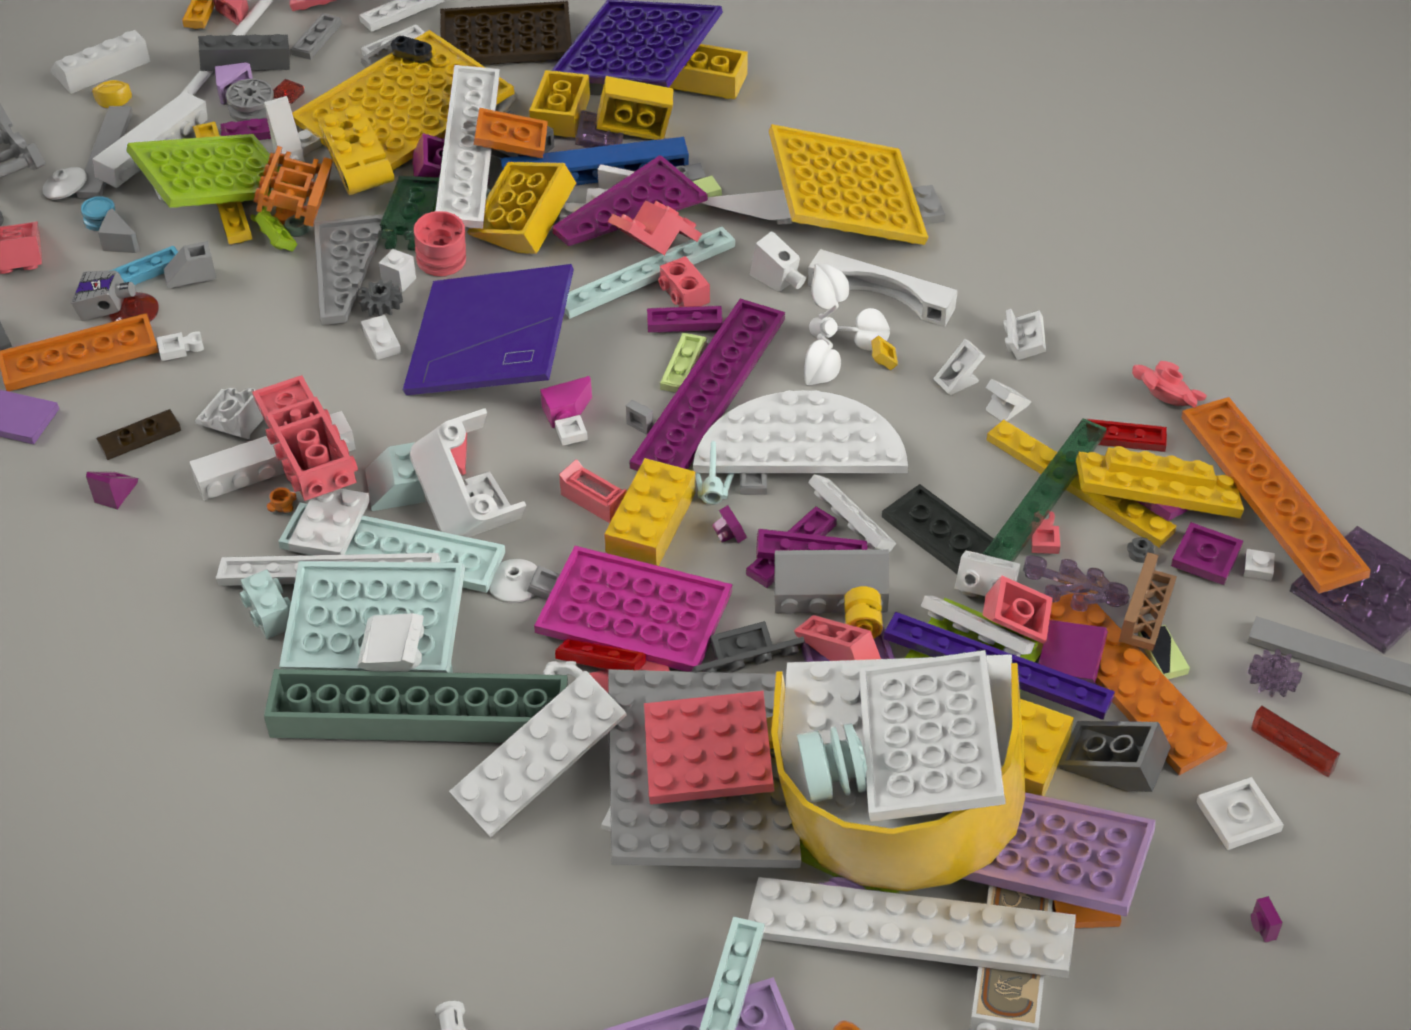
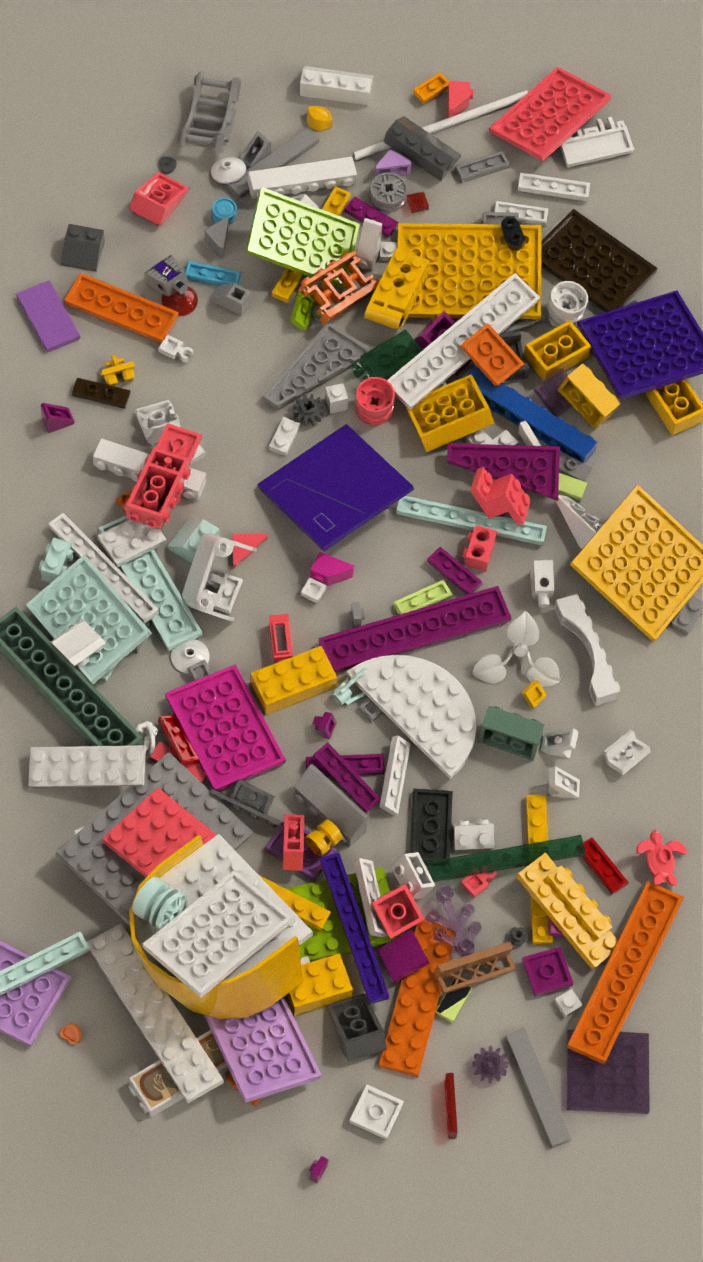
camera: 40 degrees right, 15 degrees up
(77, 146) = (256, 150): none -> light grey slope
(132, 398) = (125, 369): none -> yellow hips
(525, 65) = (566, 303): none -> white wheel
(913, 389) = (511, 732): none -> sand green brick
(989, 502) = (473, 835): none -> white bracket

